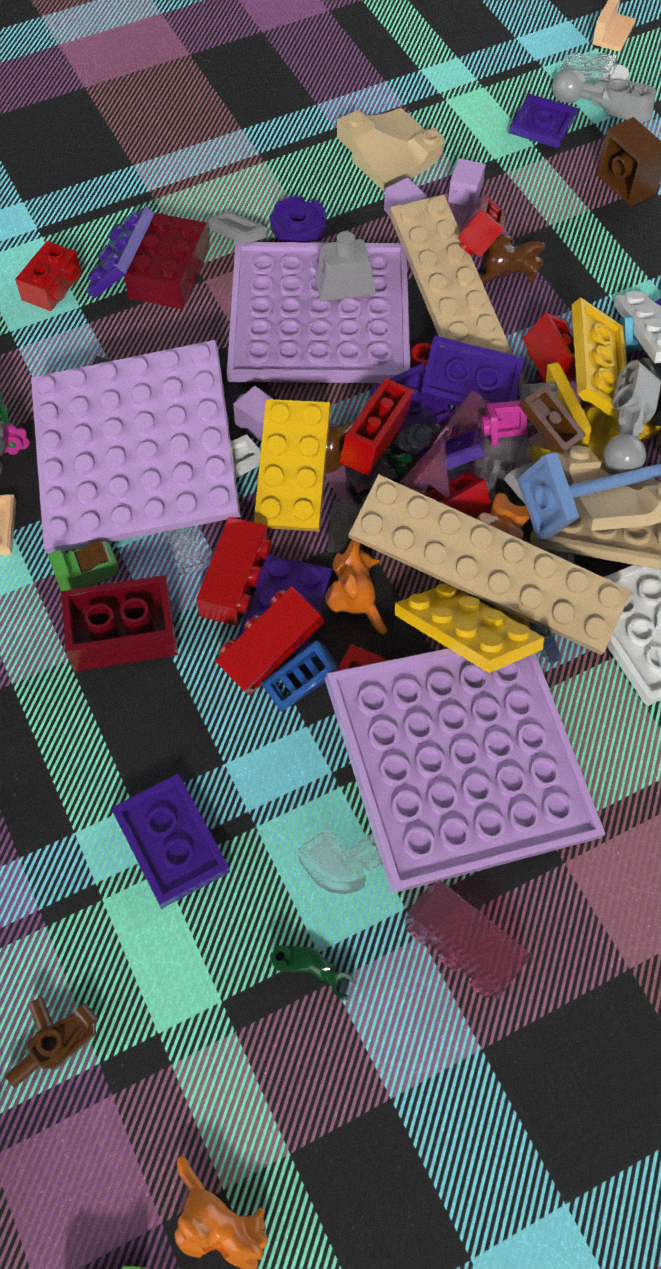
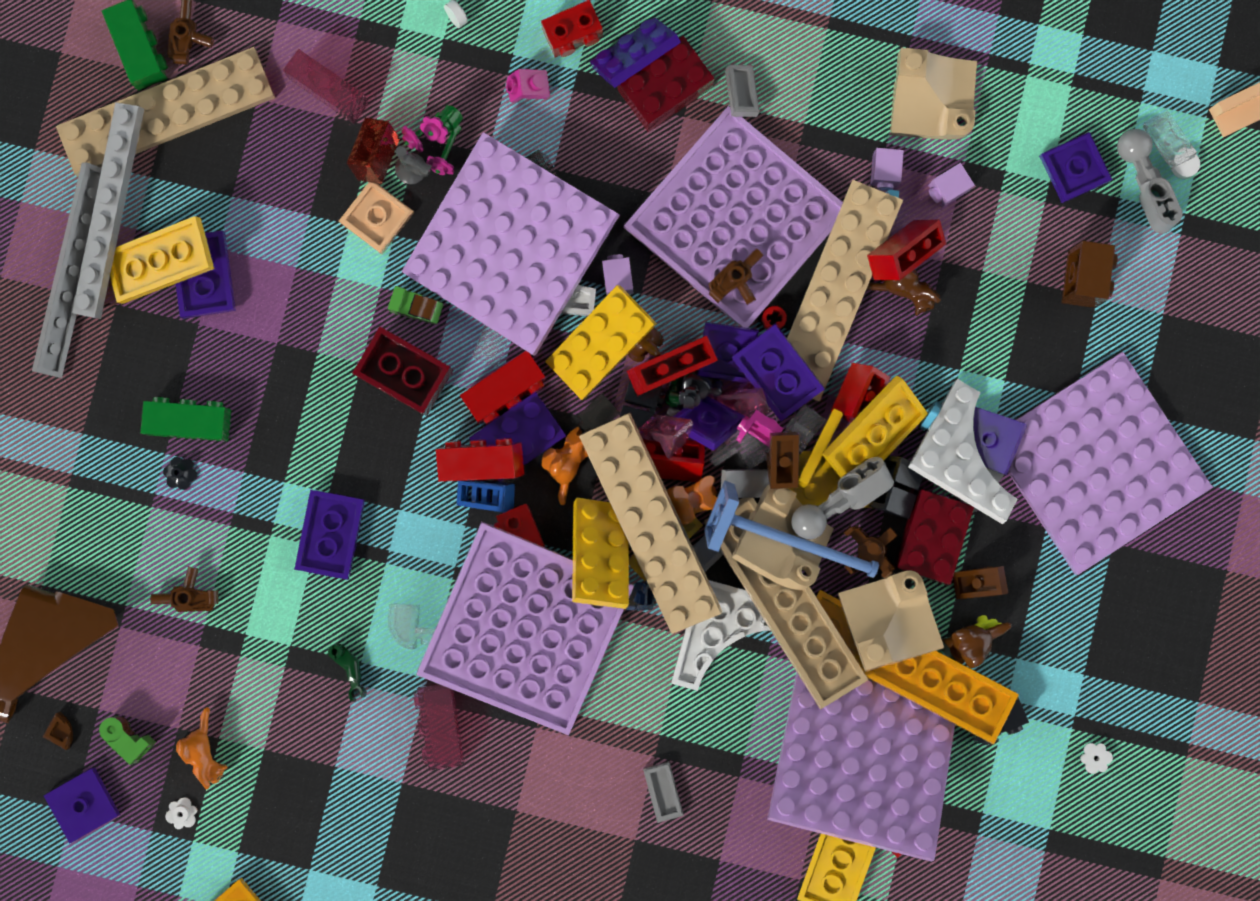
camera: 40 degrees right, 25 degrees up
(42, 334) = (527, 85): none -> dark pink bracket
(311, 218) = (785, 105): dark purple plate -> none
(344, 269) = (771, 210): light grey torso -> none
(363, 337) = (735, 277): none -> reddish brown piece

